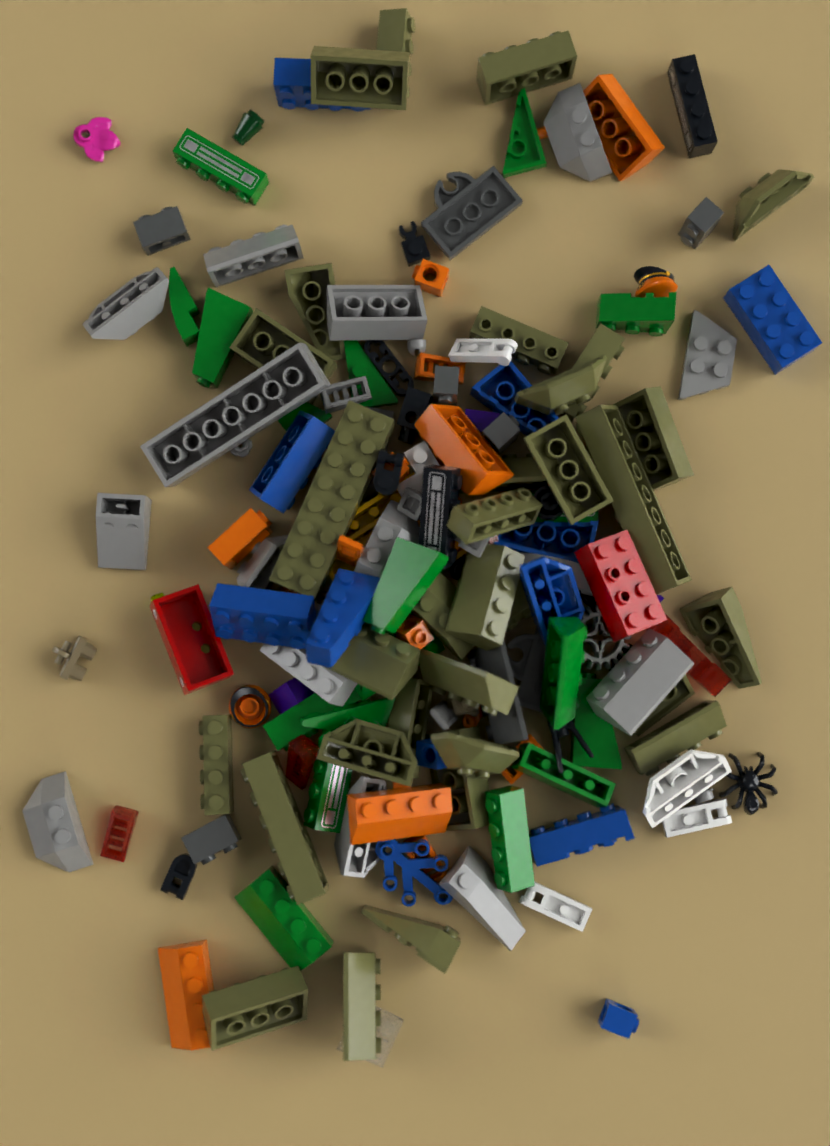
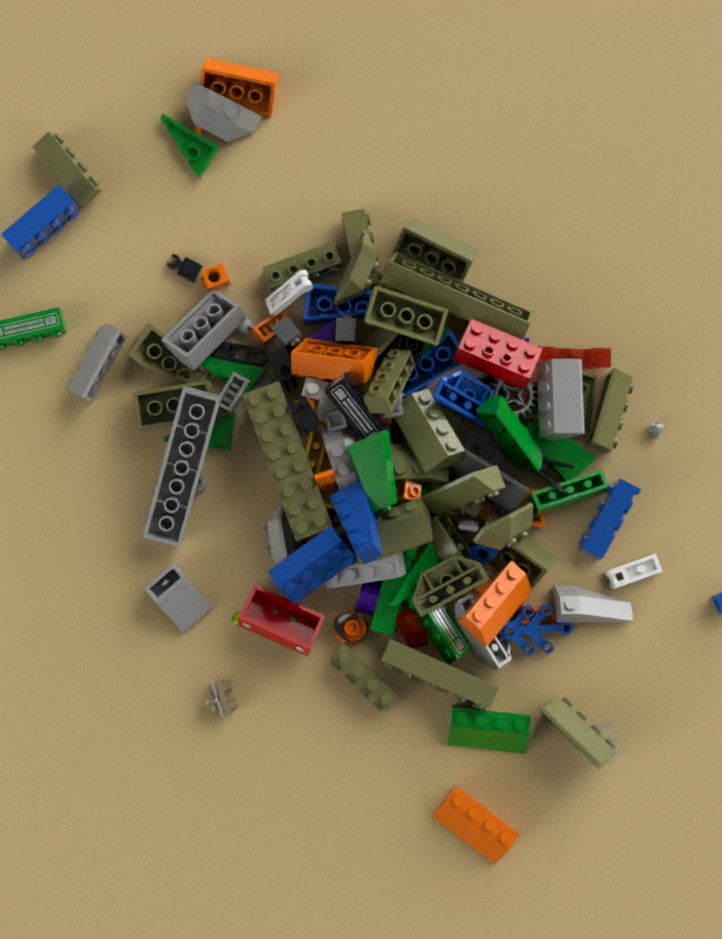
camera: 50 degrees left, 0 degrees up
(56, 825) = (305, 804): light grey wedge -> none
(129, 307) = (52, 462): light grey wedge -> none
(131, 818) = (339, 758): clear red slope -> none
(161, 230) = (26, 399): dark grey brick -> none
(183, 308) = (86, 433): green slope -> none
(183, 869) = (403, 755): black plate -> none
(212, 838) = (403, 723): dark grey brick -> none
(219, 327) = (122, 427): green slope -> none
(241, 538) = (253, 534): orange window -> none
(248, 127) = (18, 289): dark green cone -> none
(255, 1007) = (520, 791): olive slope -> none
(292, 461) = (240, 461): blue brick -> none
(359, 77) = (65, 199): olive slope -> none
(432, 941) = (580, 659): olive wedge -> none
(469, 209) = (198, 216): dark grey plate -> none
(509, 838) = (572, 557): brick -> none
(526, 66) = (152, 101): olive brick -> none
(636, 314) = (355, 187): green wedge -> none
(655, 281) = (350, 160): piece -> none
(681, 783) = (638, 433): white wedge -> none
(692, 106) = (271, 34): black brick -> none
(696, 818) = (664, 446): white plate -> none
(700, 223) = (343, 100): dark grey brick -> none
(707, 357) = (421, 174): light grey wing -> none
(723, 629) = (579, 324): olive wedge -> none
(749, 782) = (675, 397): black animal -> none
(767, 197) = (366, 49): olive wedge -> none
(772, 319) = (437, 117): blue brick -> none

